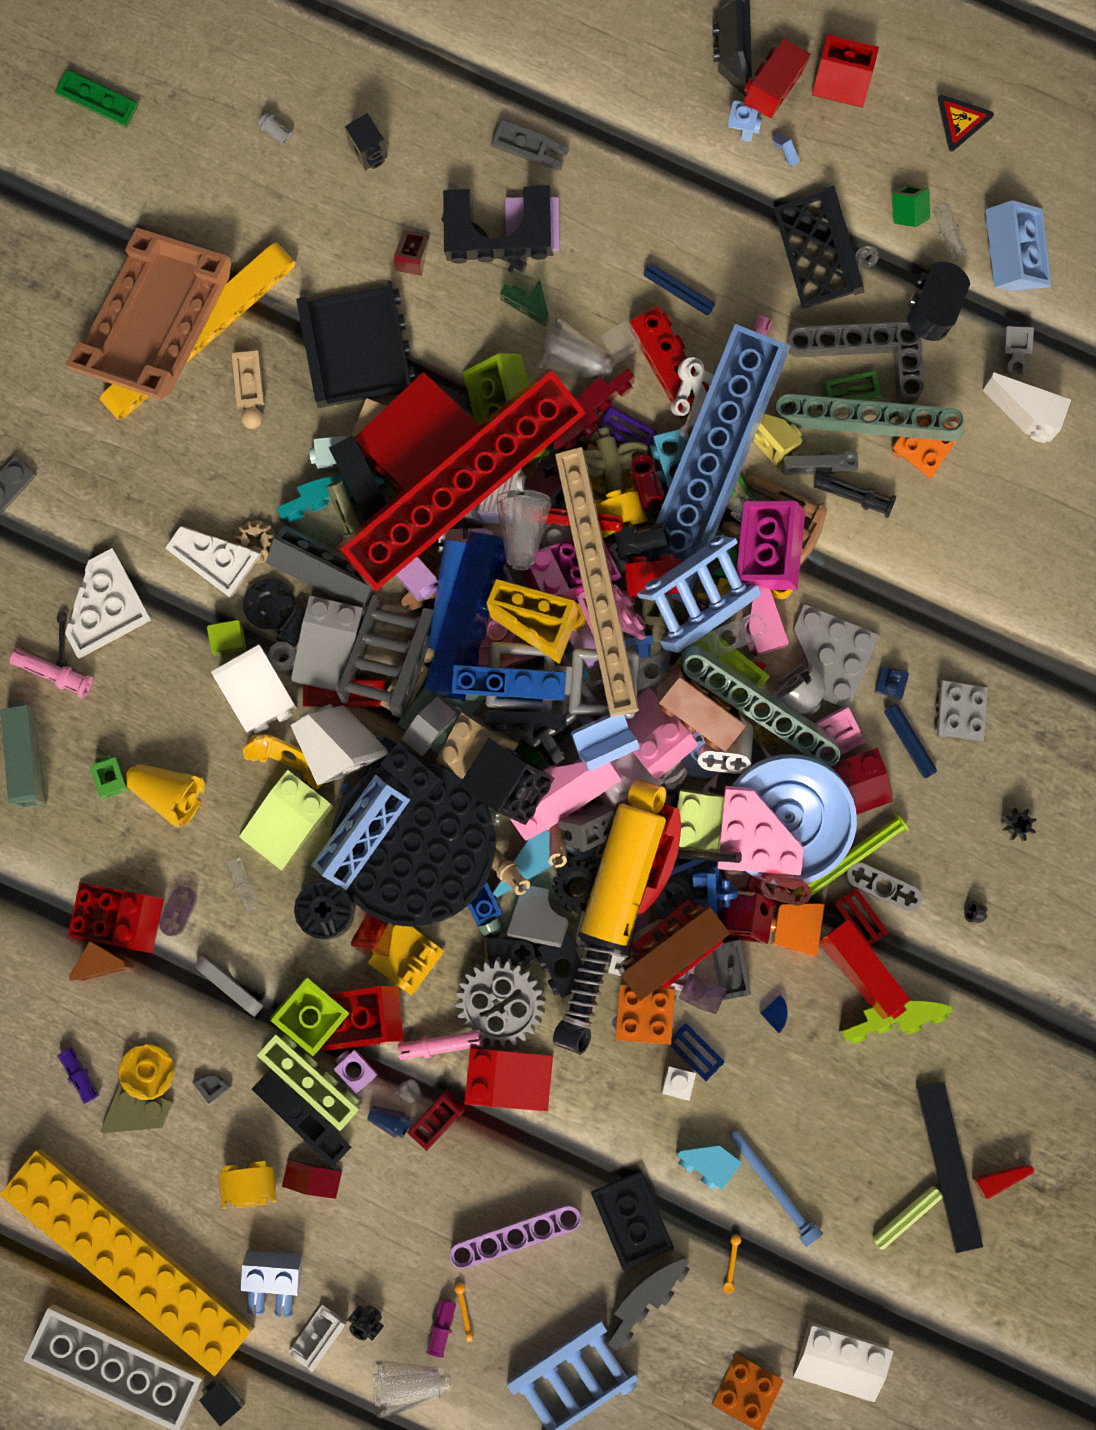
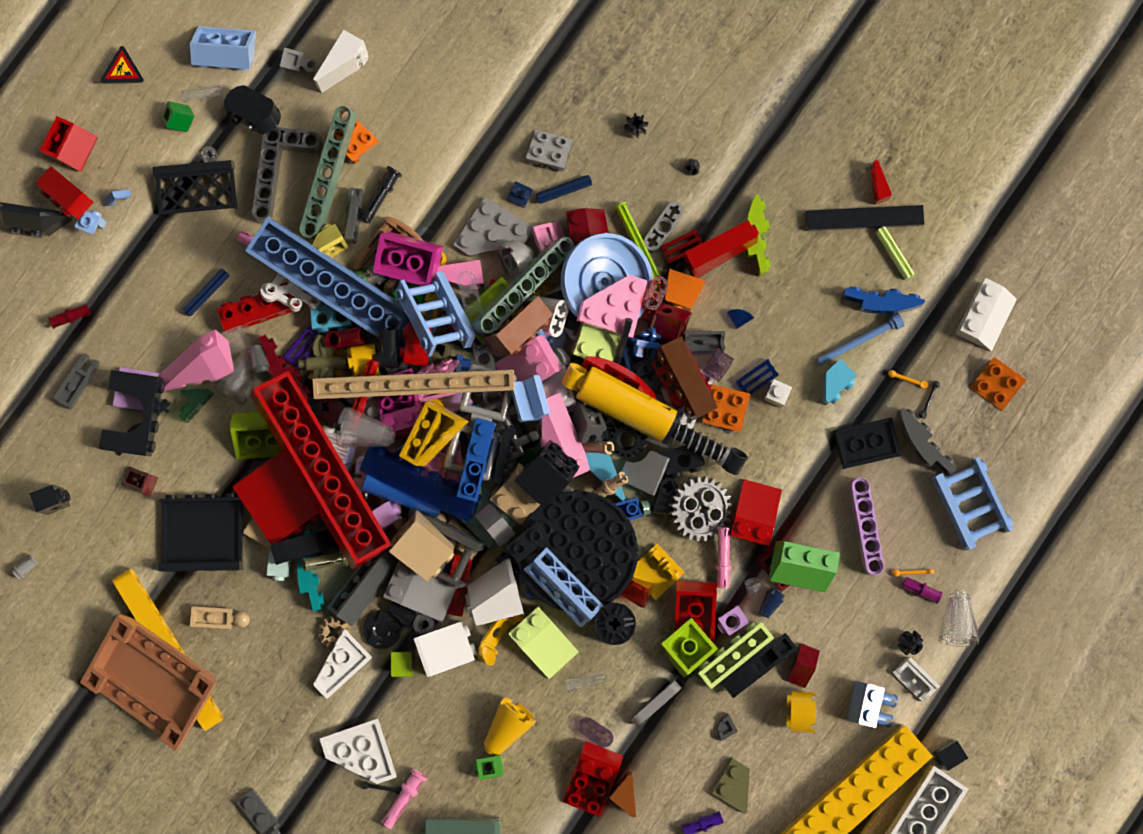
camera: 80 degrees left, 0 degrees up
(146, 1072) = (708, 773): yellow tile -> none
(382, 632) = (421, 546): none -> tan slope
(445, 1156) = (803, 566): none -> bright green slope
(582, 300) = (203, 360): none -> bright pink wedge
(595, 373) = (258, 361): none -> dark grey cone
(615, 118) = (69, 315): none -> dark red pin
(687, 1293) = (923, 414): none -> black hinge
(835, 1223) = (889, 303): none -> blue slope
(853, 378) = (303, 166): bright green tile -> none

